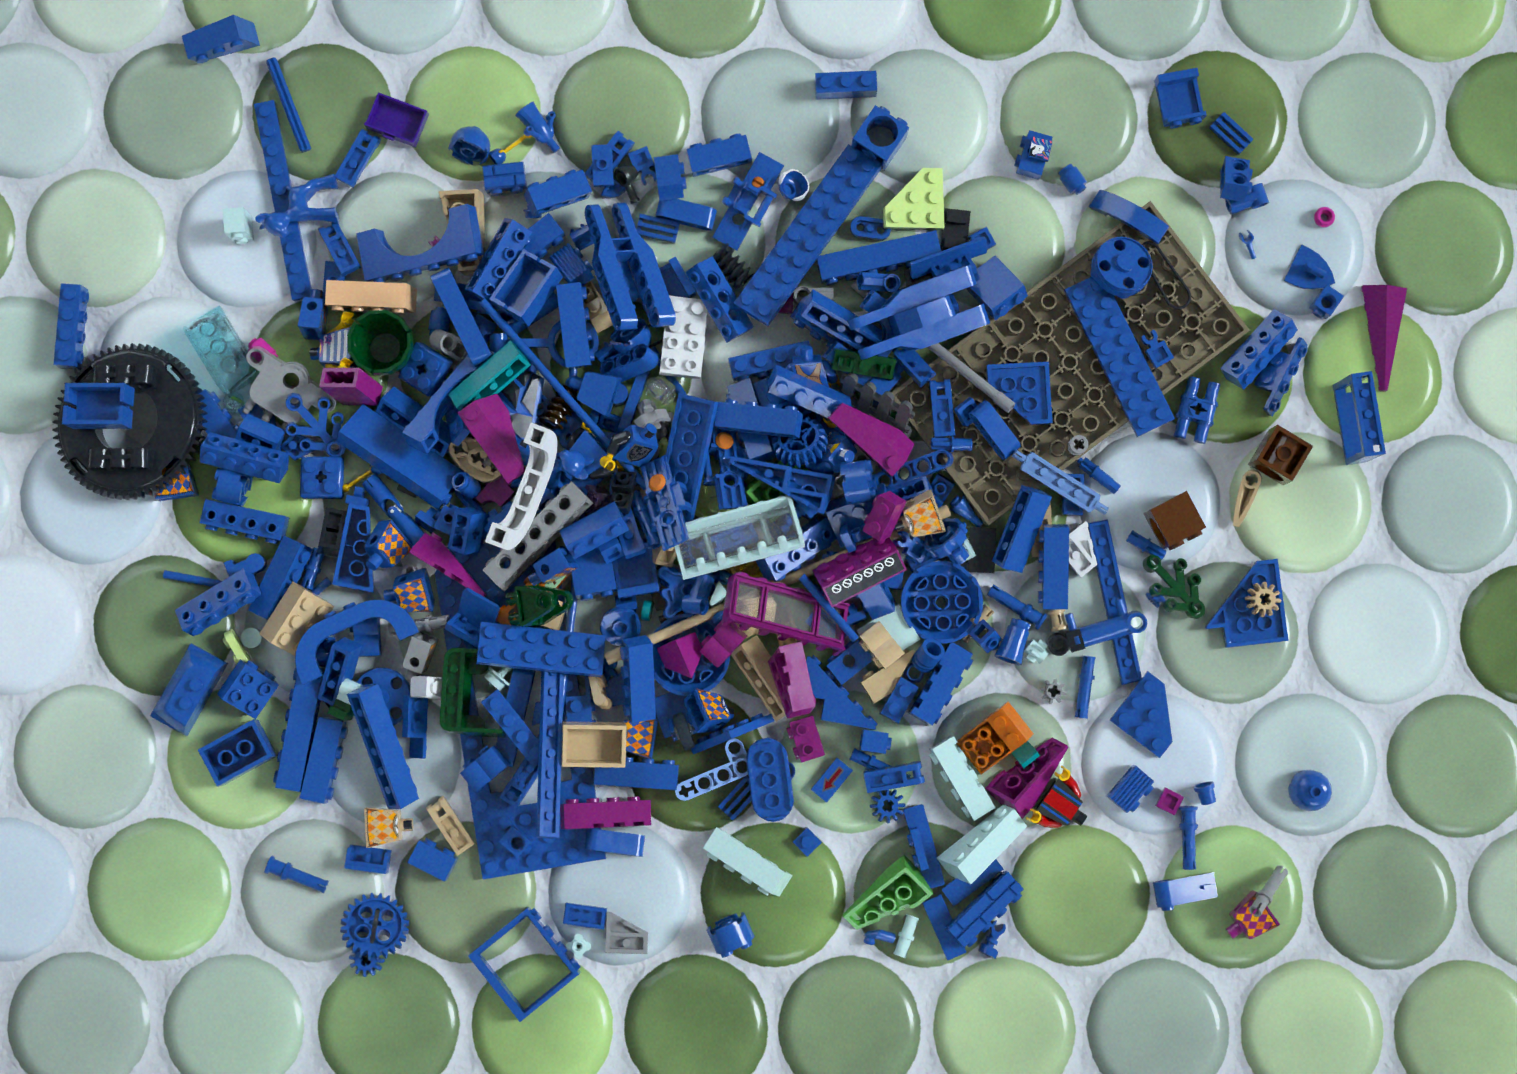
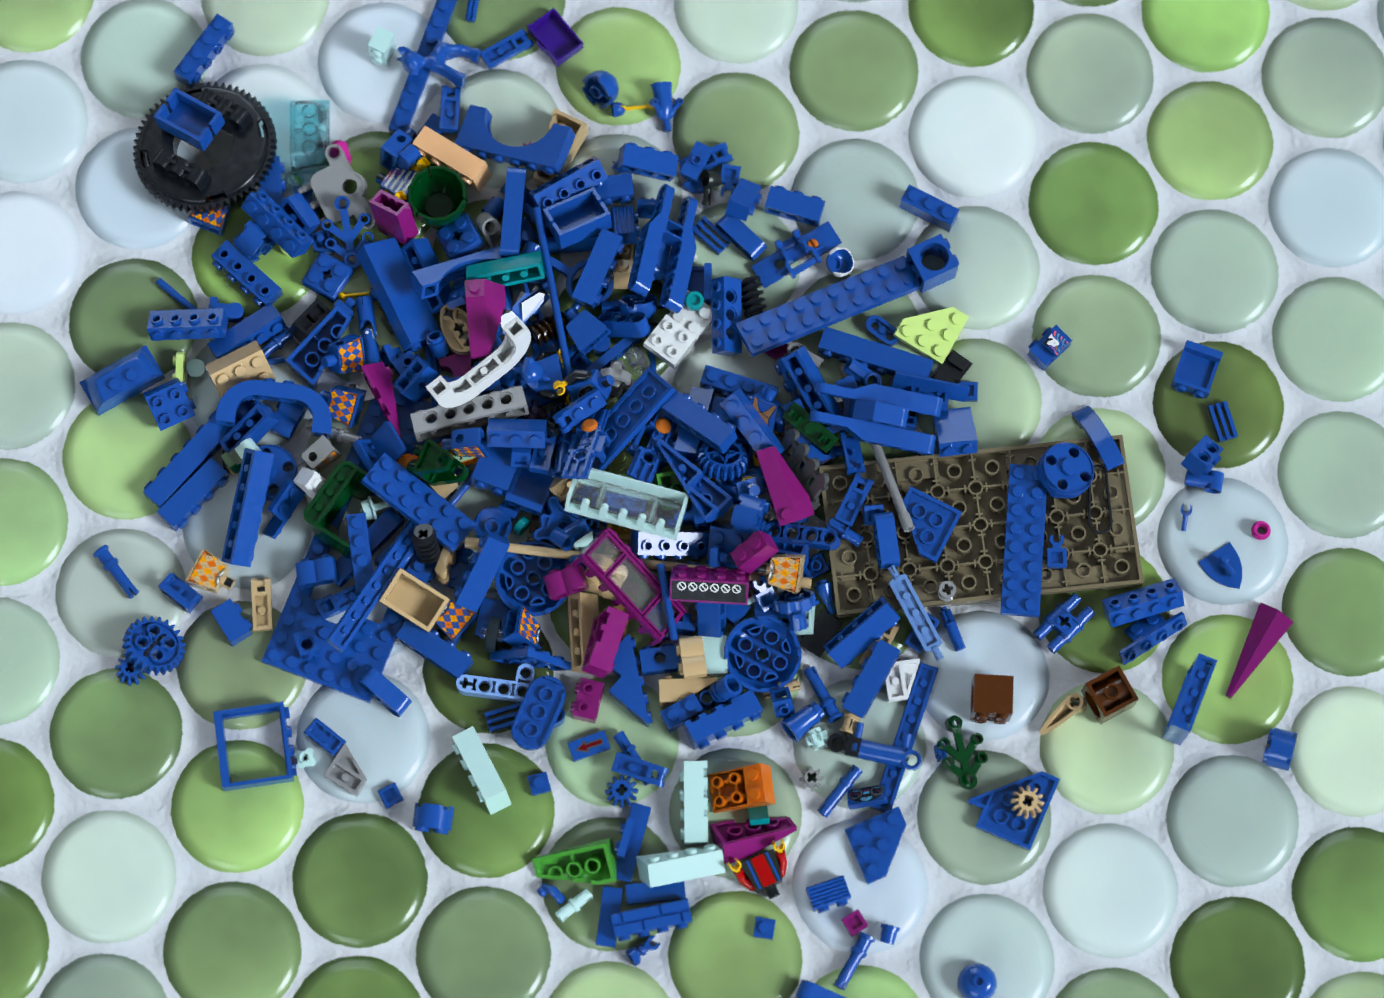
camera: 30 degrees right, 10 degrees down
(237, 752) = (130, 449): blue brick -> none
(329, 319) = (408, 157): none -> blue brick
(504, 178) = (613, 128): blue brick -> none
(572, 685) = (426, 544): none -> black piece
(605, 814) = (390, 663): magenta wedge -> none
(639, 474) = (579, 410): none -> blue plate
(677, 933) = (390, 795): none -> blue tile
(681, 302) = (694, 301): none -> teal tile
(682, 654) = (528, 572): magenta slope -> none
(875, 741) = (641, 732): blue brick -> none
(1072, 179) = (1070, 384): blue brick -> none
(1090, 854) = (764, 928): none -> blue plate
(1113, 677) = (867, 796): none -> slope
(1145, 545) = (957, 706): blue axle -> none
(1331, 296) = (1227, 592): blue brick -> none
(1461, 414) = (1281, 748): none -> blue brick

